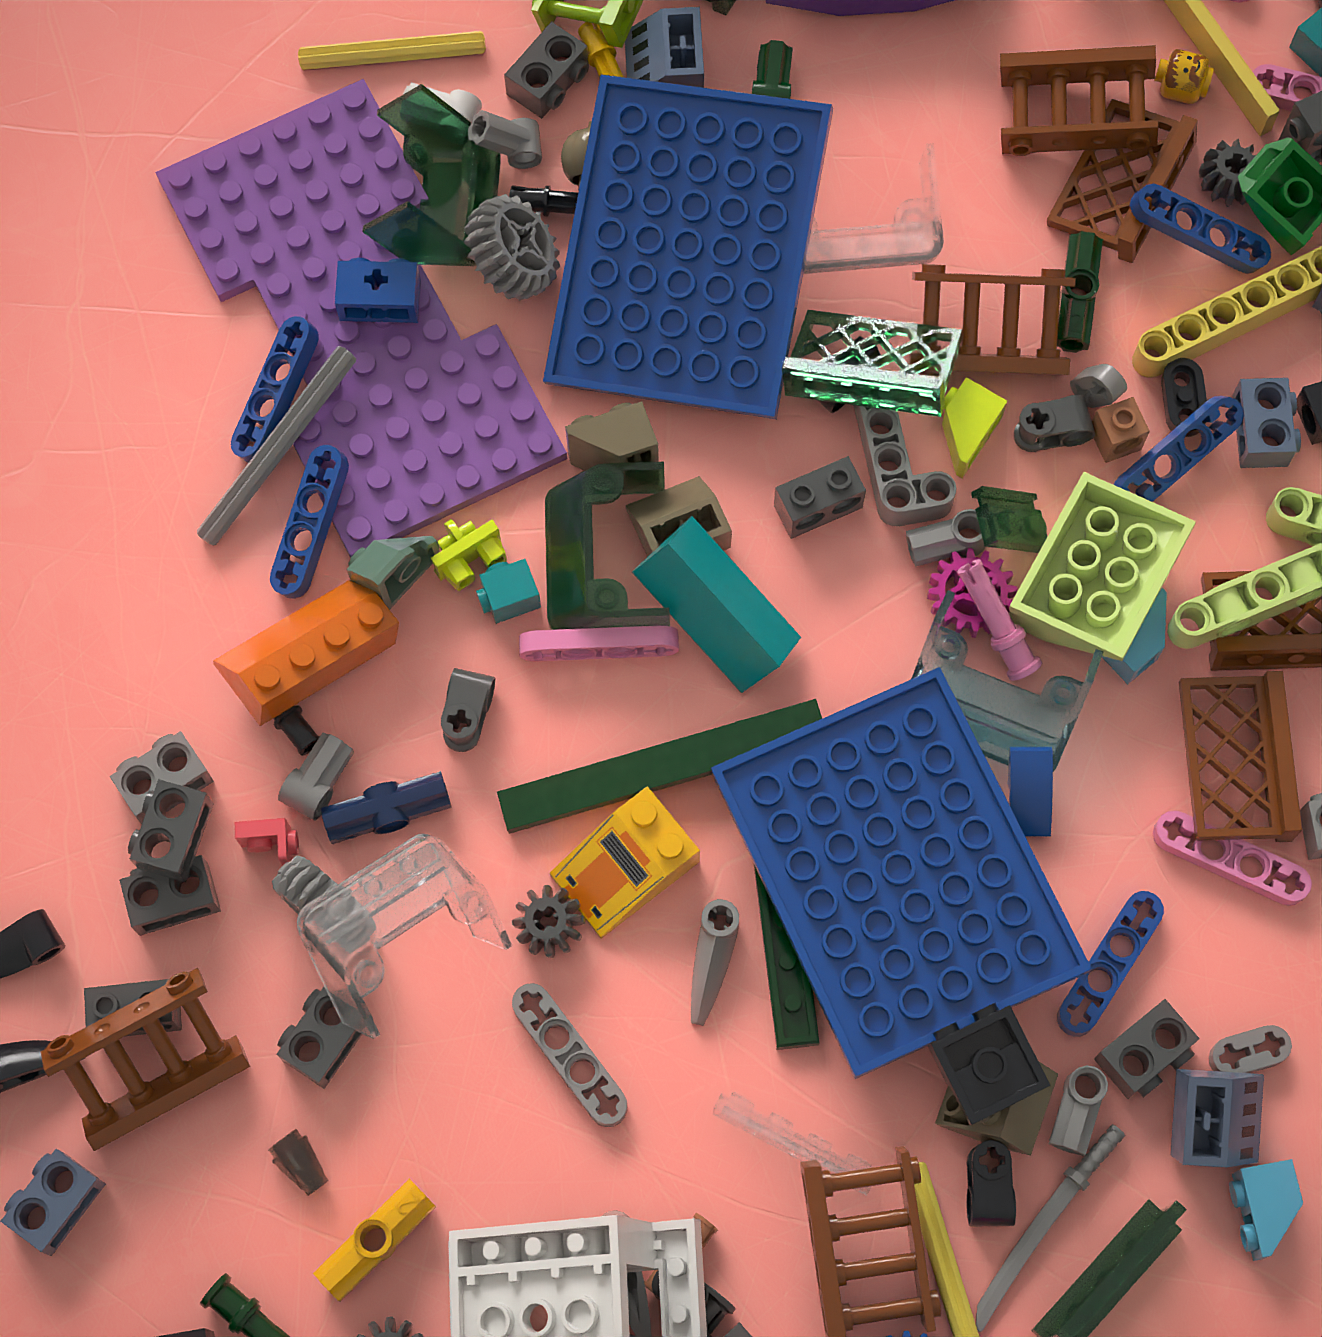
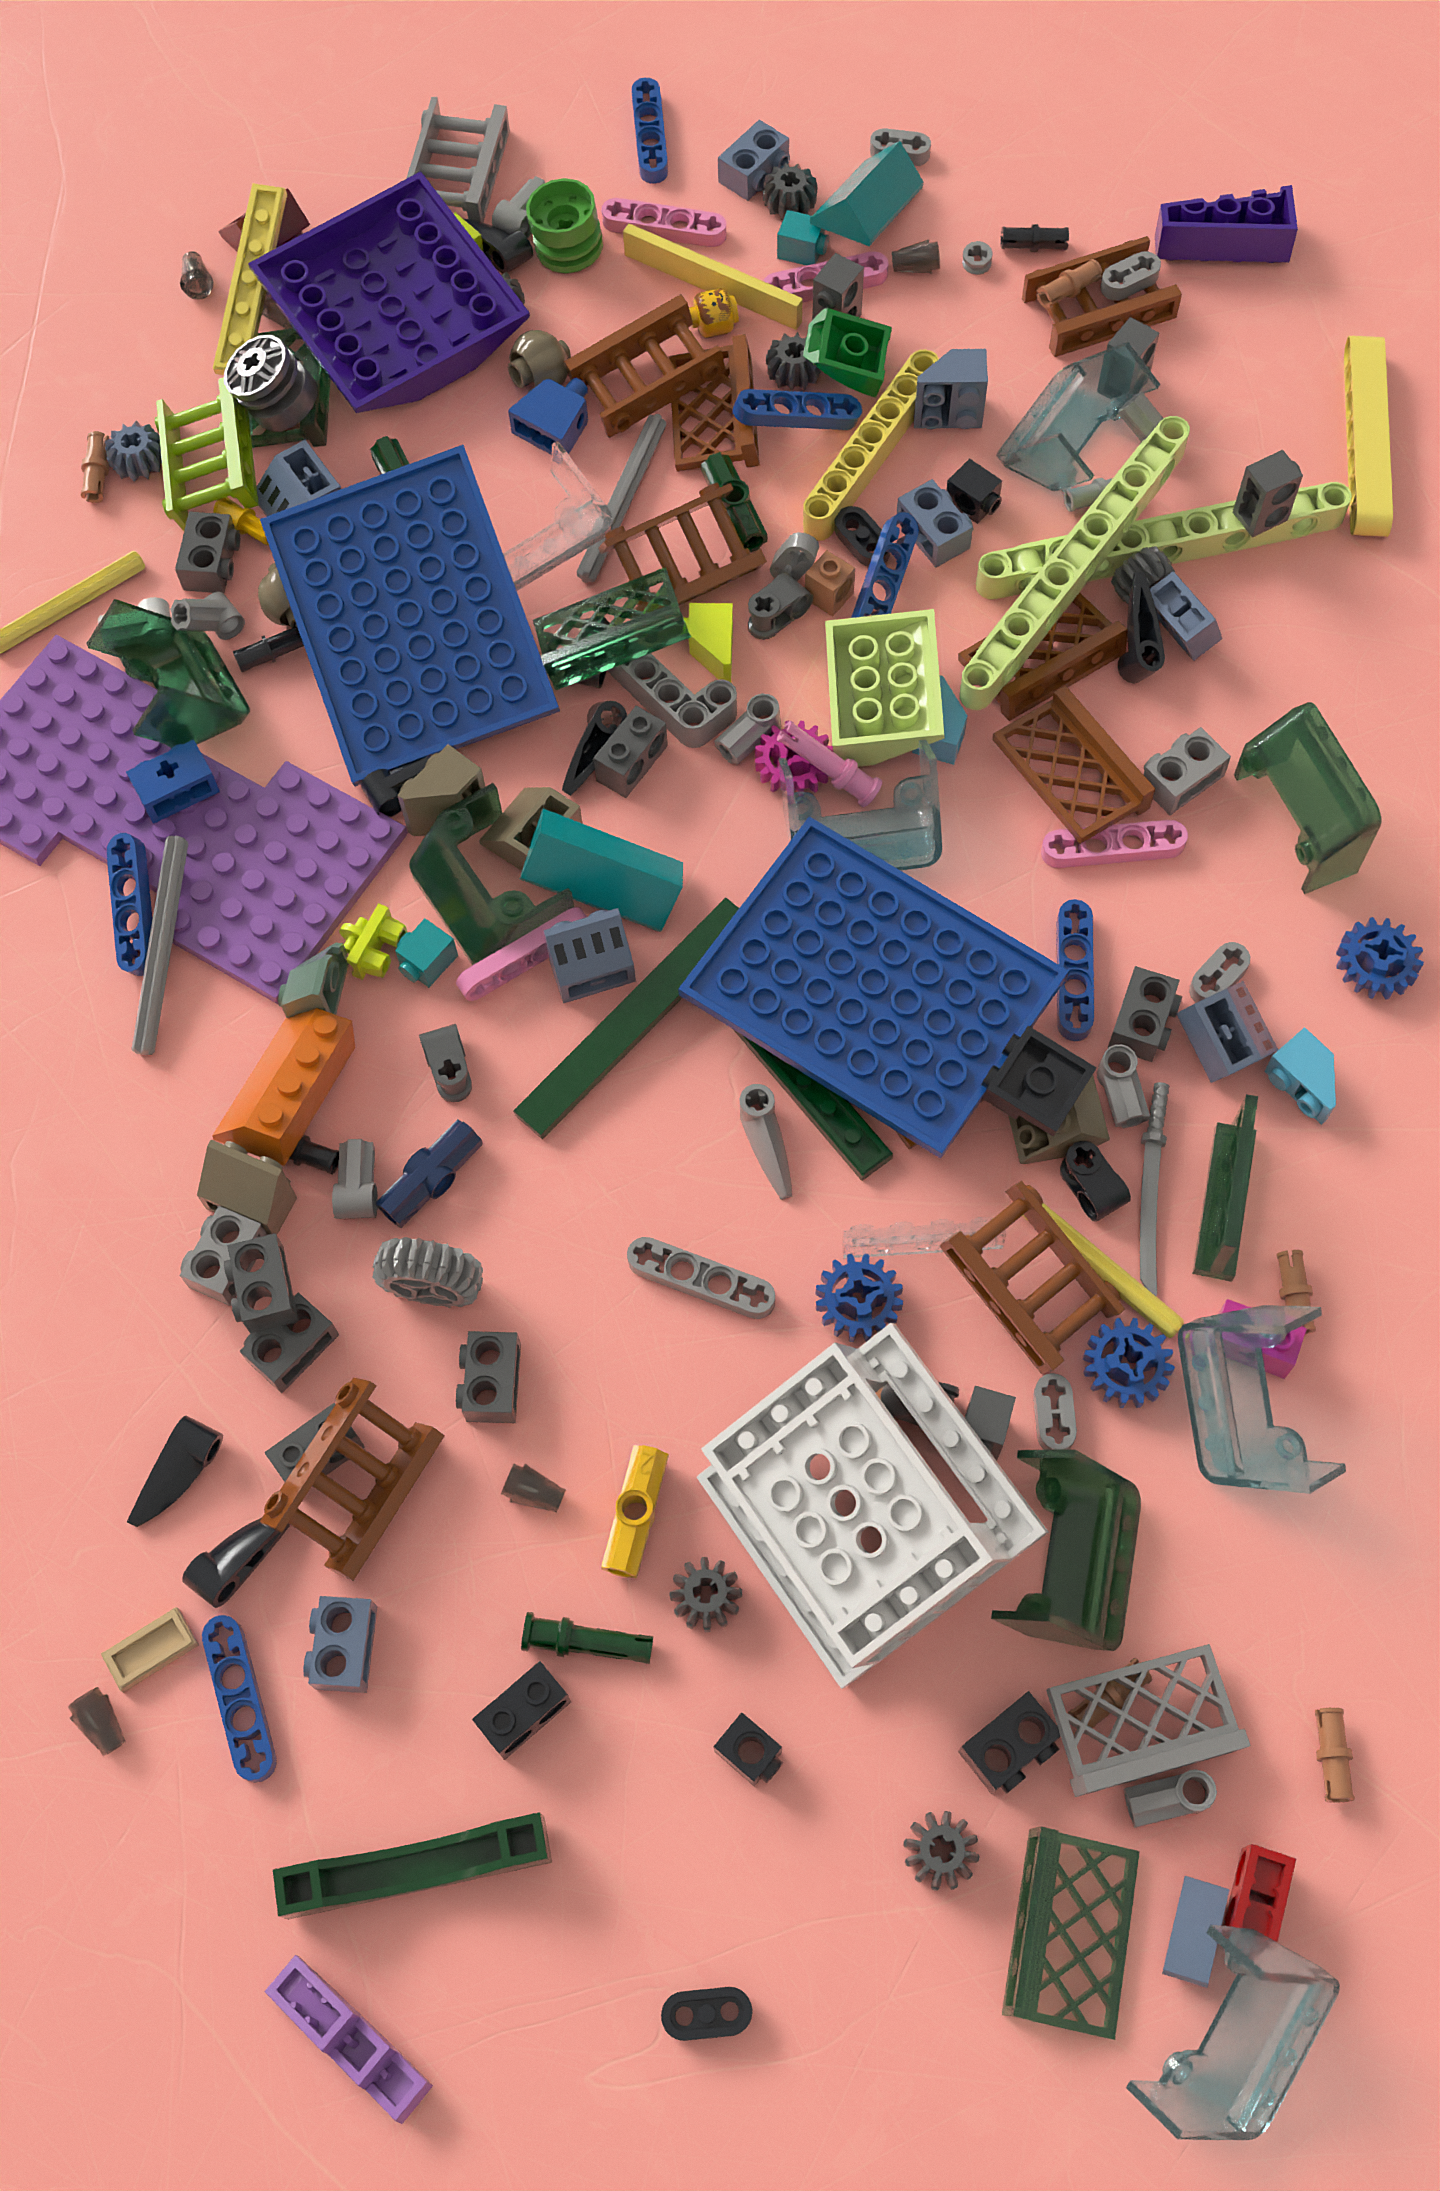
camera: 30 degrees left, 5 degrees down
(217, 735) = (245, 1185): none -> dark tan slope
(262, 834) = (341, 1248): coral bracket -> none
(302, 520) = (219, 990): blue beam -> none
(379, 905) = (468, 1253): clear windscreen -> none
(512, 247) = (264, 691): light grey gear -> none
(546, 907) = (631, 1190): dark grey gear -> none
(571, 401) = (383, 786): none -> black piece
(626, 862) = (653, 1104): yellow slope -> none
(653, 682) = (589, 955): none -> sand blue slope
(705, 1145) = (873, 1292): none -> blue gear
(788, 467) = (591, 742): none -> black piece
(957, 103) = (551, 414): none -> blue torso
(979, 37) = (536, 358): none -> dark tan plant
(981, 220) = (624, 491): none -> light grey axle
(1010, 519) = (790, 689): clear green plate -> none
(1031, 788) = (931, 866): blue slope -> none

